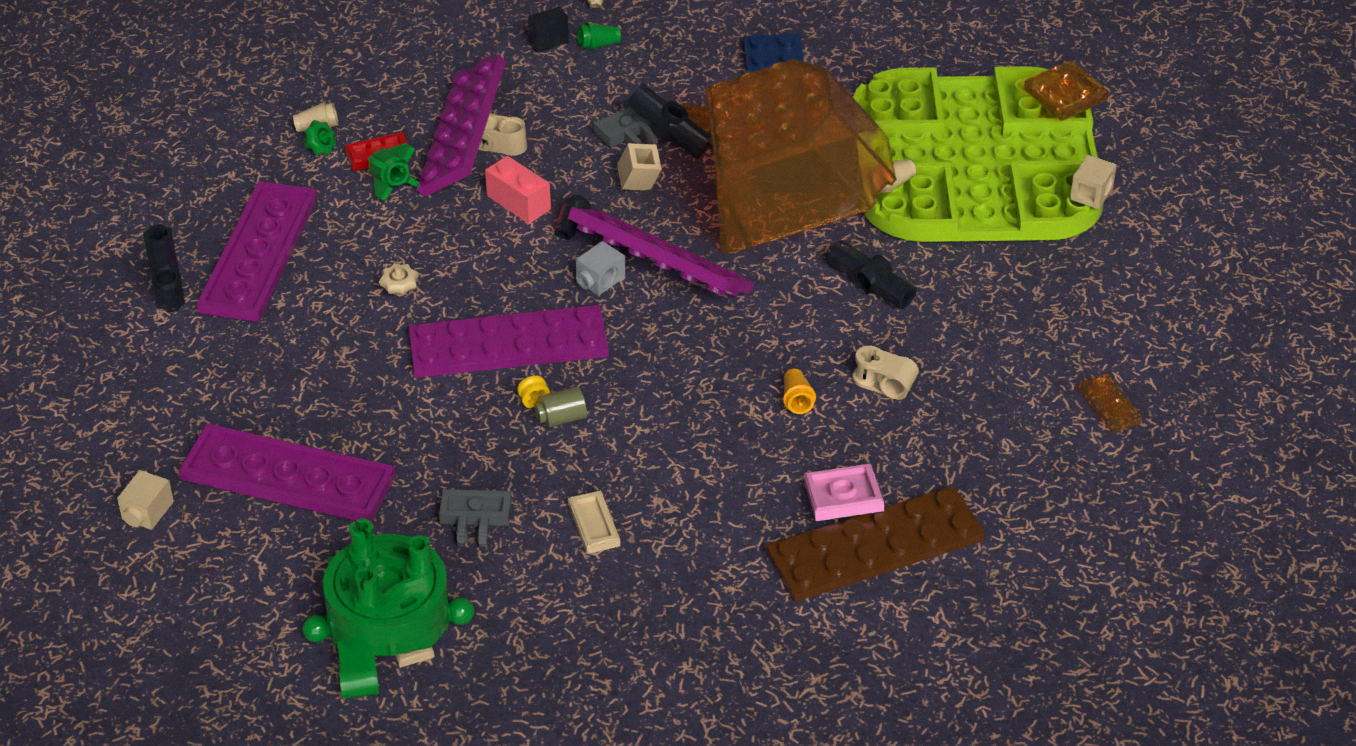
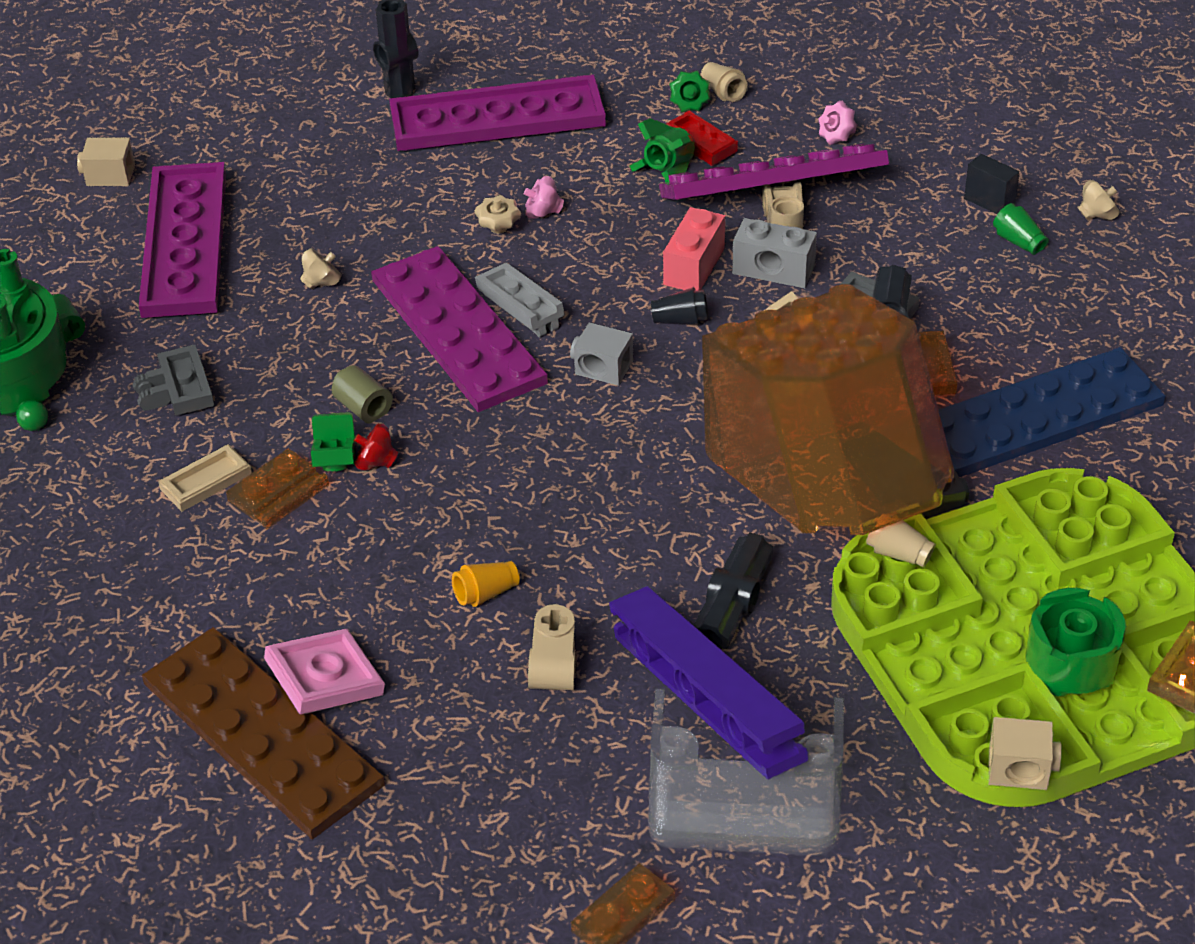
camera: 70 degrees right, 0 degrees up
(392, 398) = (319, 269): none -> tan piece
(393, 250) = (543, 198): none -> bright pink piece
(418, 78) = (837, 123): none -> bright pink piece
(502, 296) = (521, 298): none -> light grey hinge
(529, 385) = (378, 364): yellow bush -> none
(551, 149) = (774, 252): none -> light grey brick
(610, 437) = (333, 441): none -> green bracket
(626, 414) = (375, 449): none -> red piece
(631, 482) = (277, 488): none -> clear orange plate
(665, 253) = (650, 391): magenta plate -> none
(968, 294) = (710, 683): none -> dark purple piece
(1016, 131) = (1075, 641): none -> green brick
(1047, 339) = (733, 805): none -> clear windscreen

